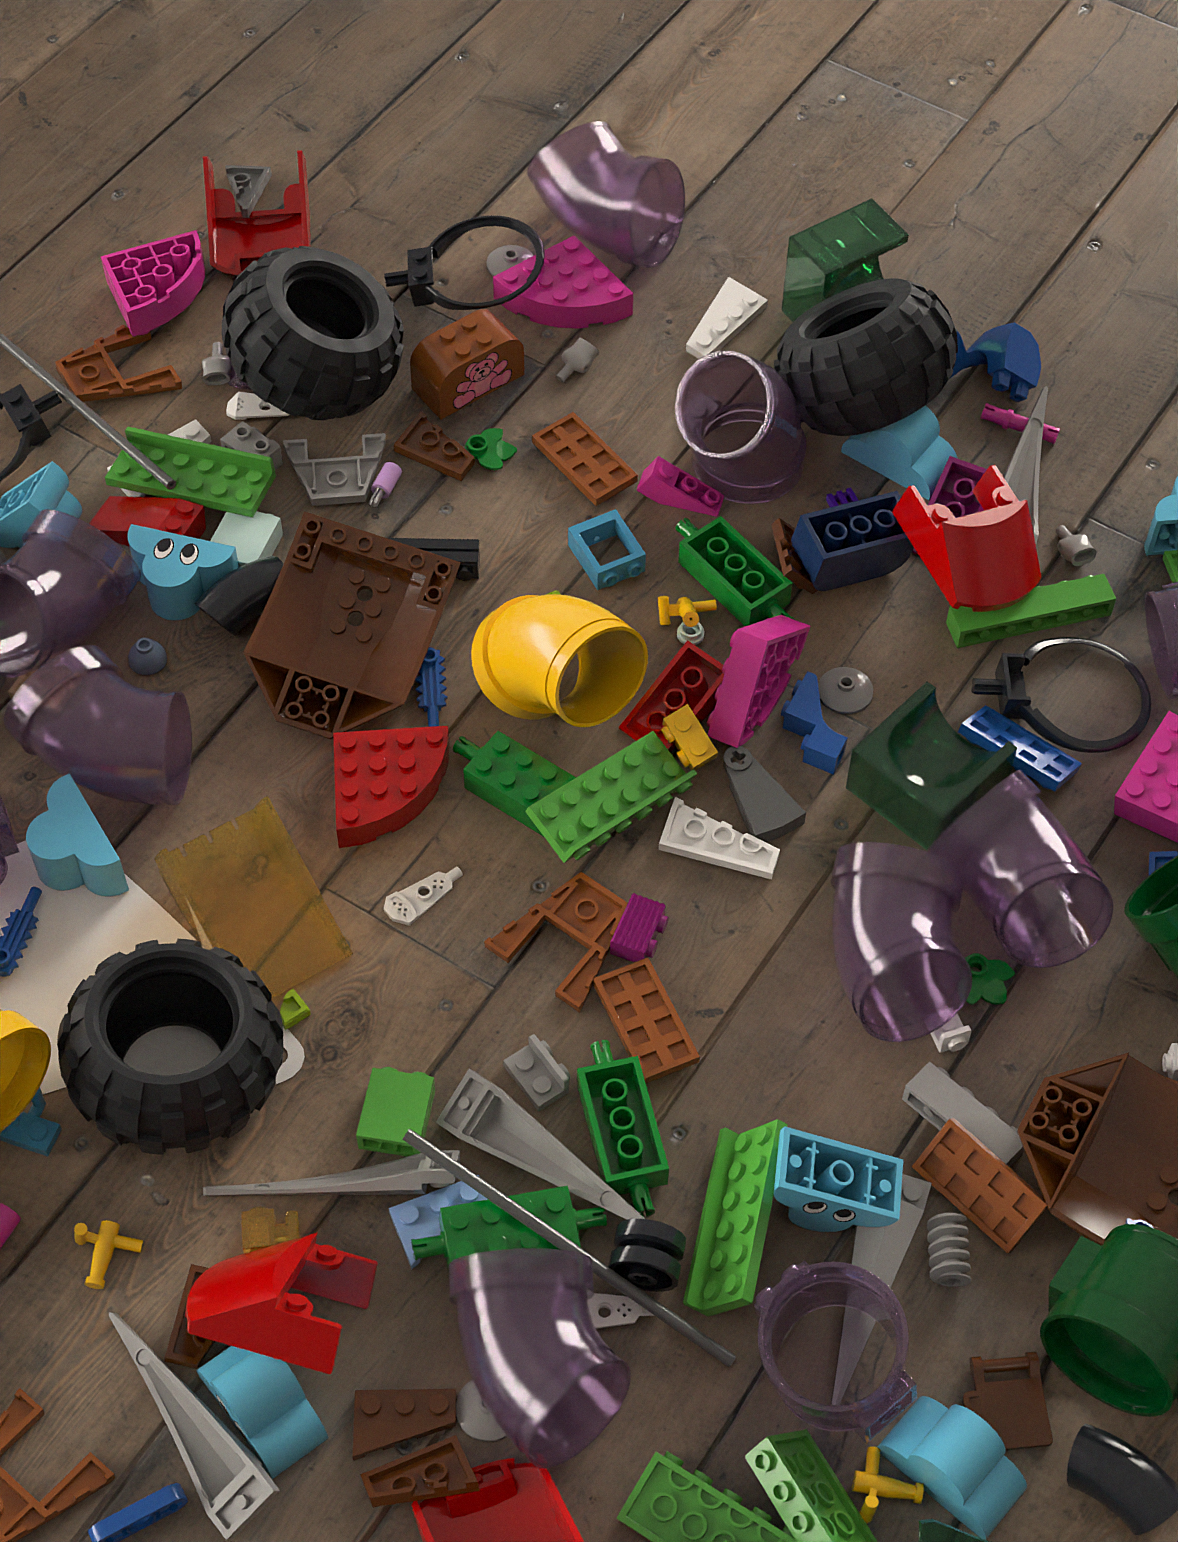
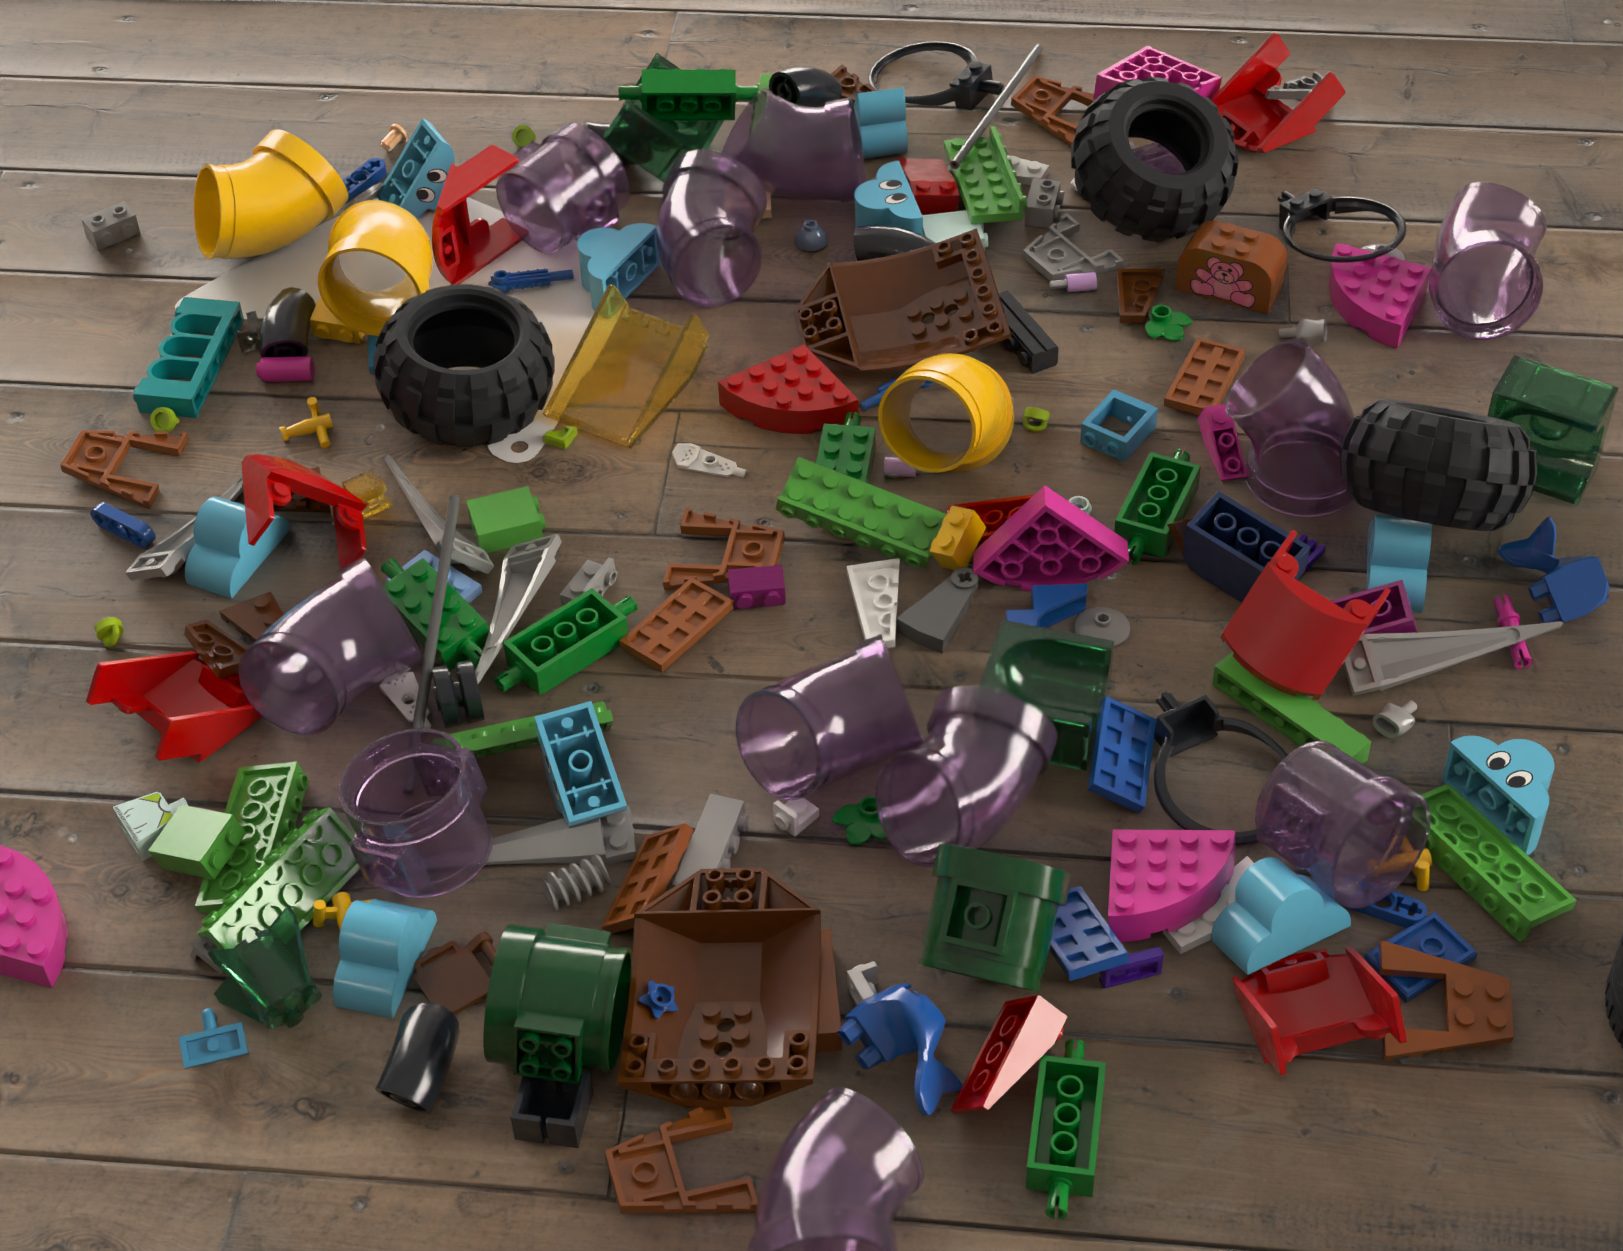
camera: 65 degrees right, 10 degrees down
(547, 737) = (897, 468): none -> lavender piece
(684, 608) = (1088, 489): yellow piece -> none
(726, 317) = (1462, 397): white wing -> none

